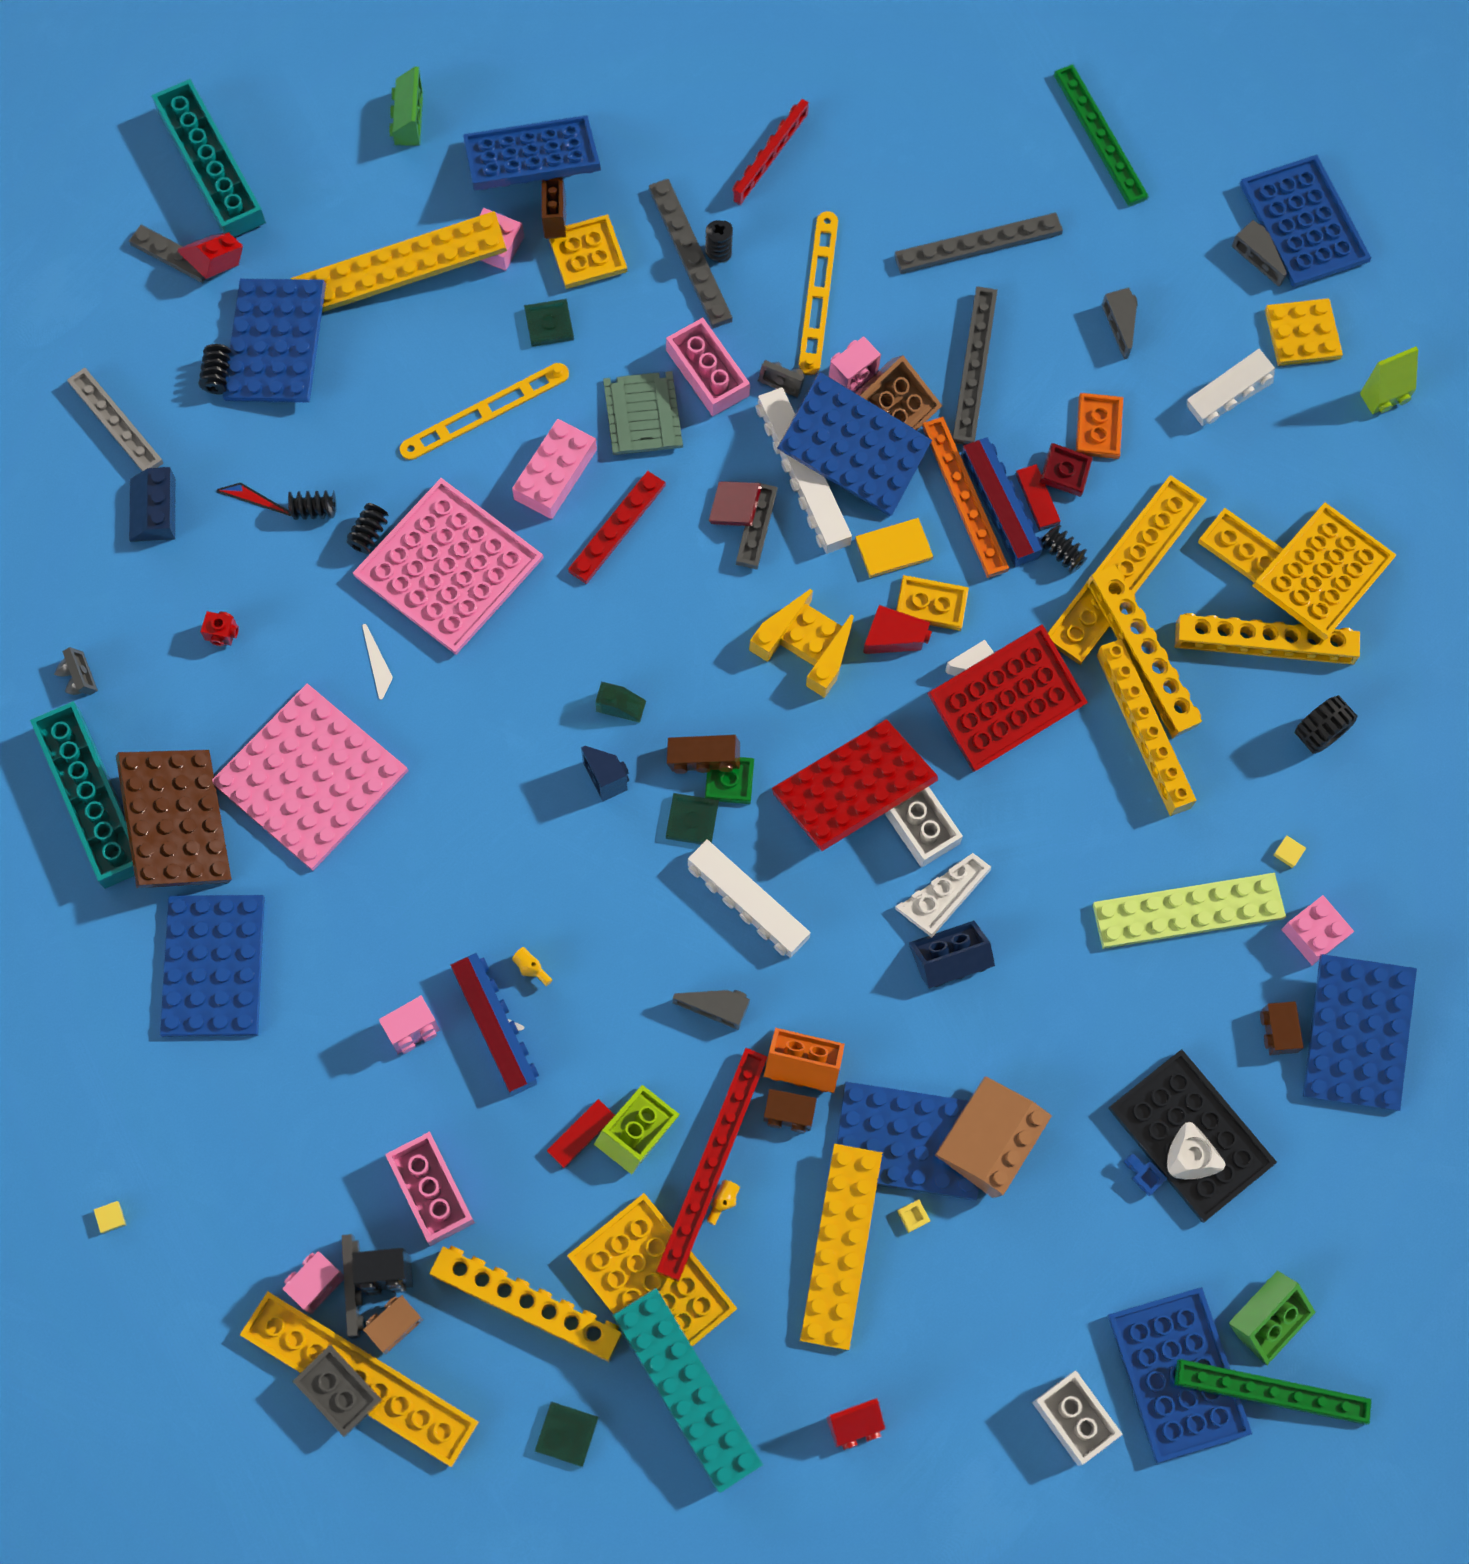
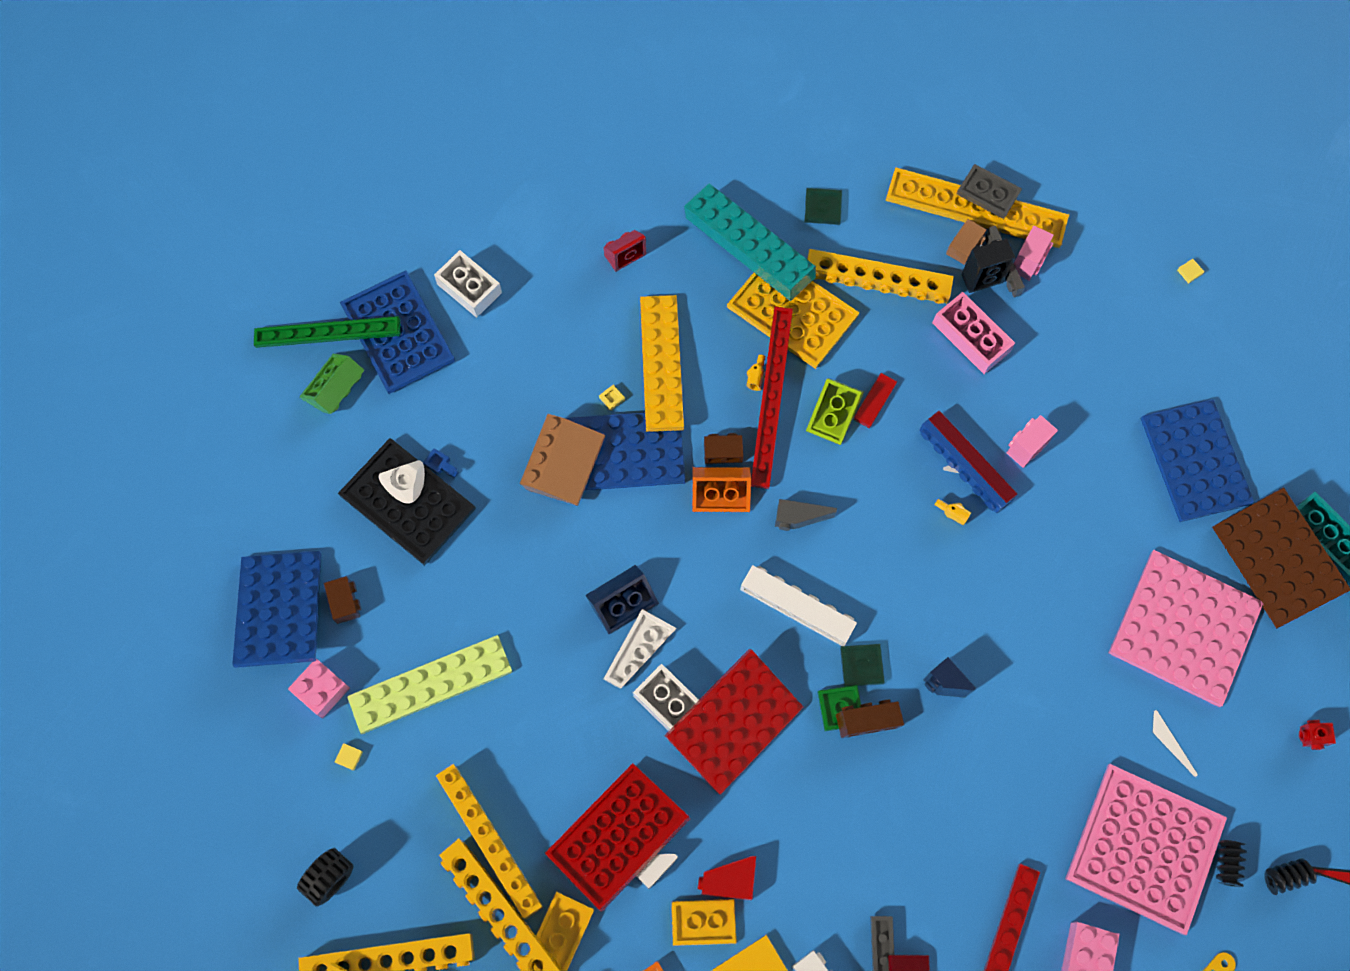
camera: 170 degrees right, 0 degrees up
(619, 702) = (954, 752): clear green slope -> none
(807, 636) = (804, 856): yellow wedge -> none

